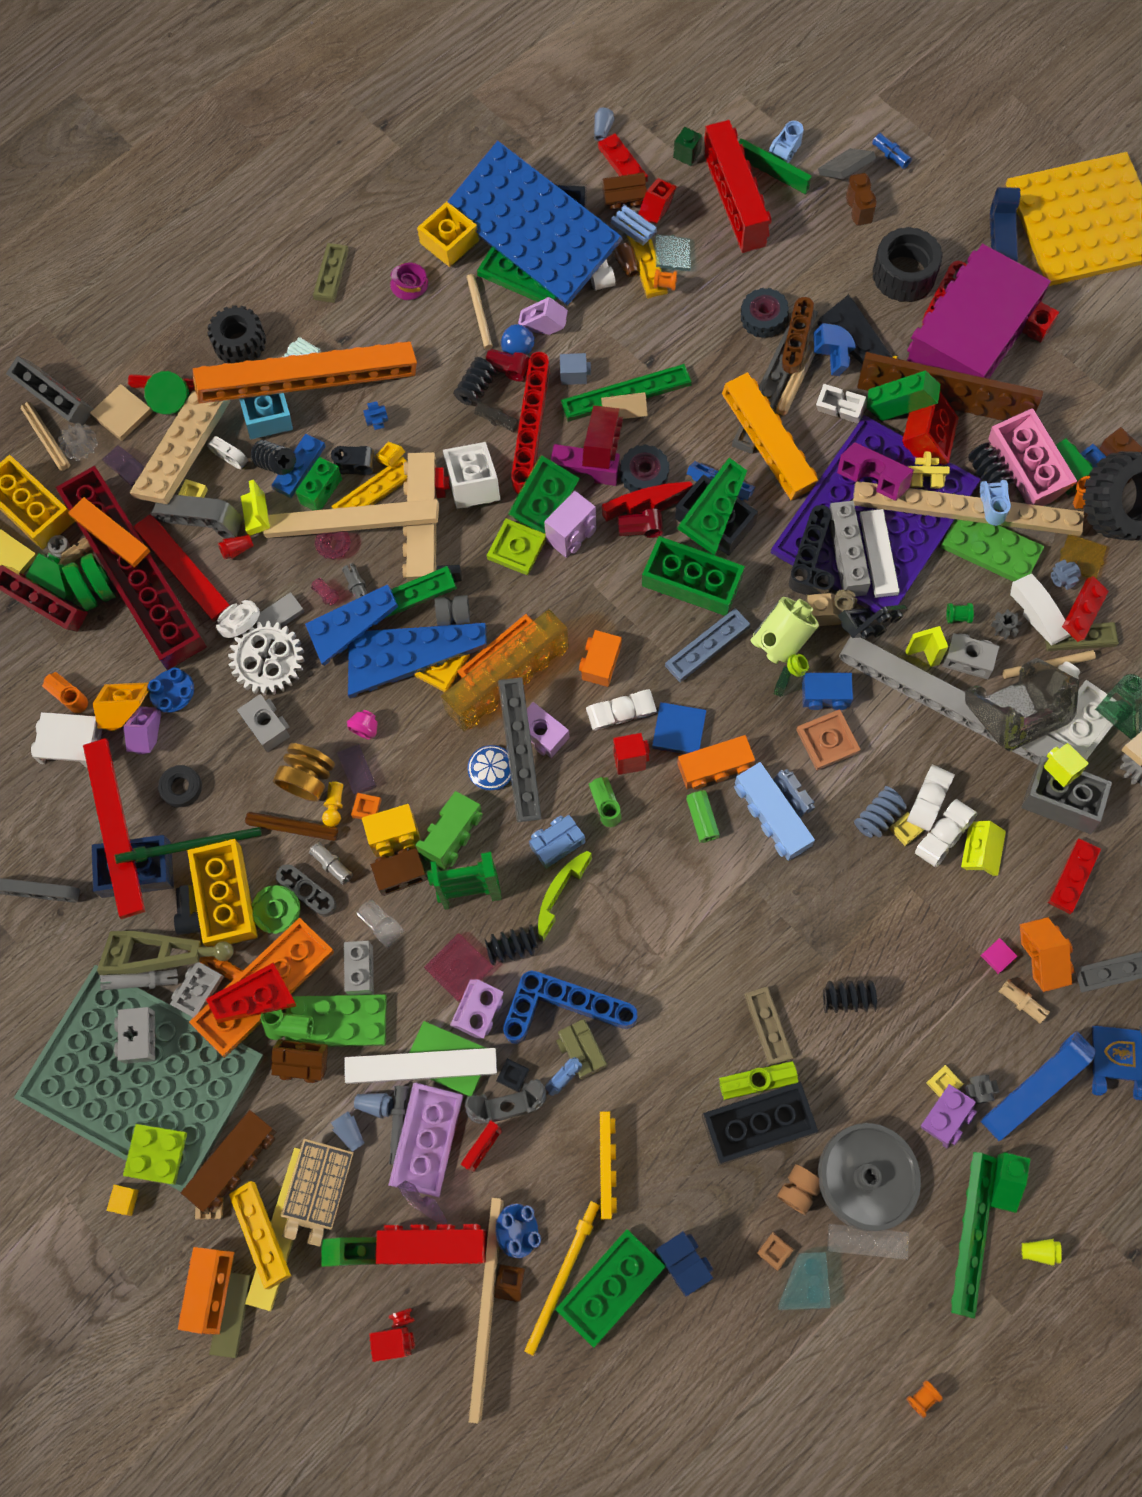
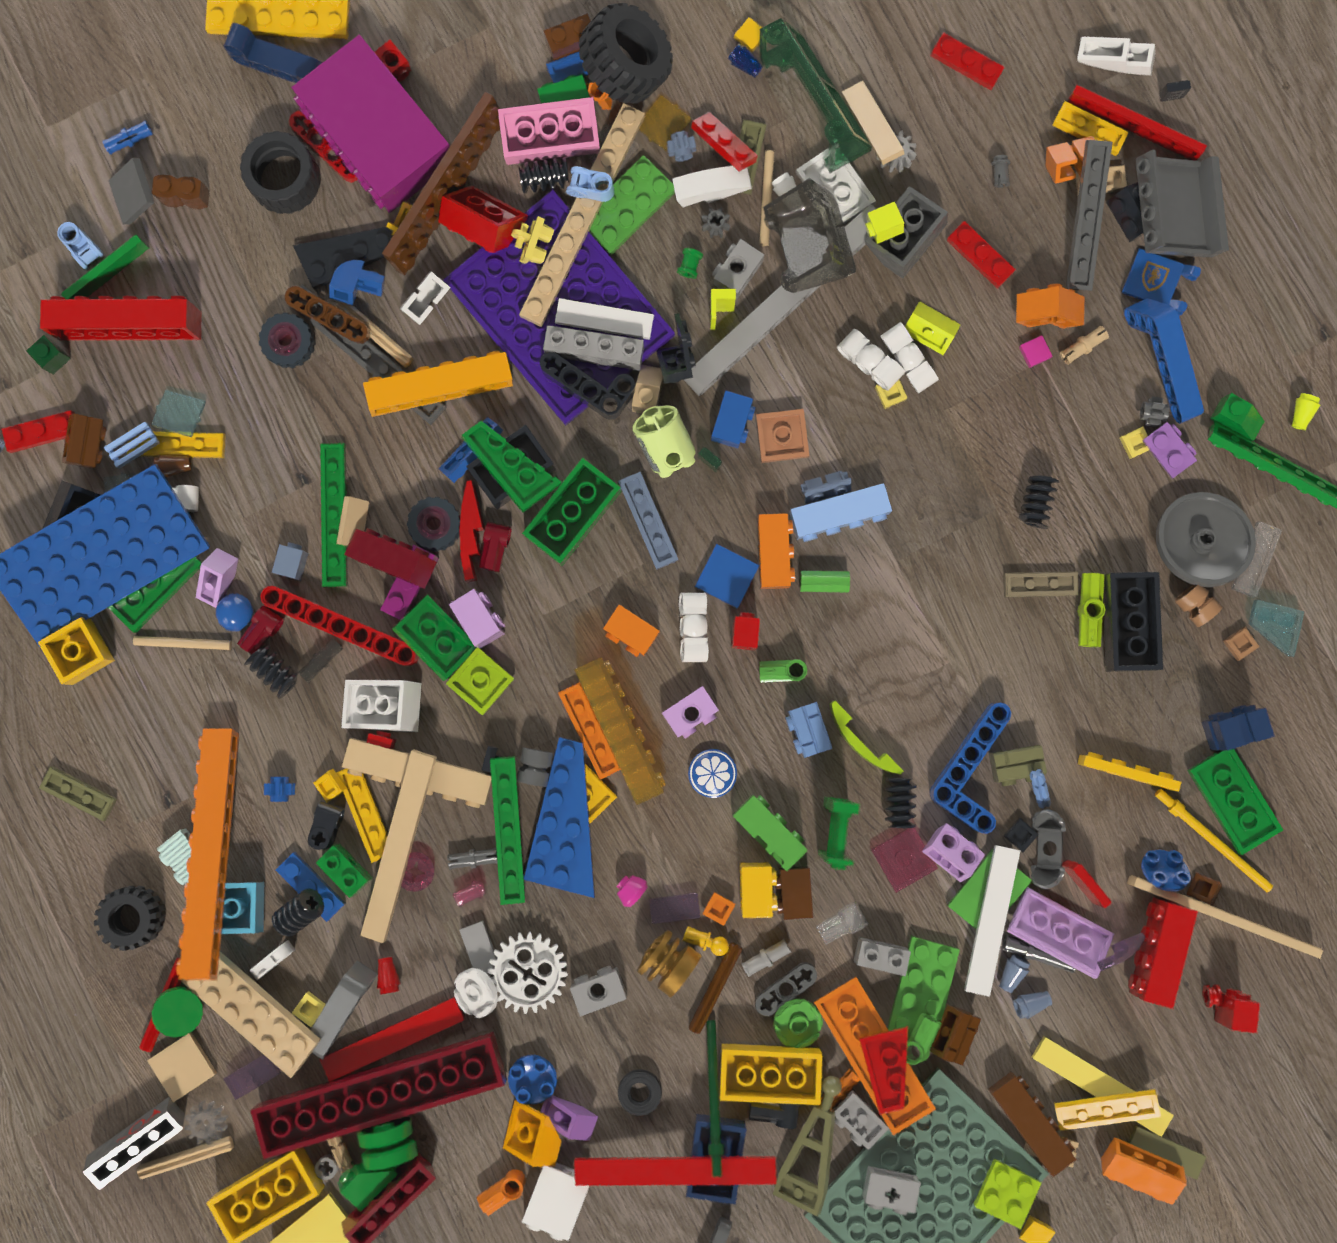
camera: 75 degrees left, 15 degrees up
(109, 532) = (339, 1110): orange tile -> none
(145, 979) = (832, 1197): light grey pin -> none
(255, 510) = (352, 946): neon yellow panel -> none
(315, 1189) = (1079, 1048): tan tile -> none
(343, 625) = (518, 881): blue wing -> none
(349, 1251) = (1142, 1028): green slope -> none
(408, 281) = (119, 710): magenta piece -> none
(519, 749) = (709, 740): dark grey tile -> none
(657, 200) = (112, 409): red brick -> none
(665, 279) = (217, 429): orange bush -> none
(797, 665) = (703, 440): lime plate -> none
(843, 604) = (649, 370): dark tan plate -> none
(863, 462) = (503, 299): magenta arch -> none
(880, 812) = (872, 411): sand blue piece -> none
(903, 395) = (441, 233): green brick -> none

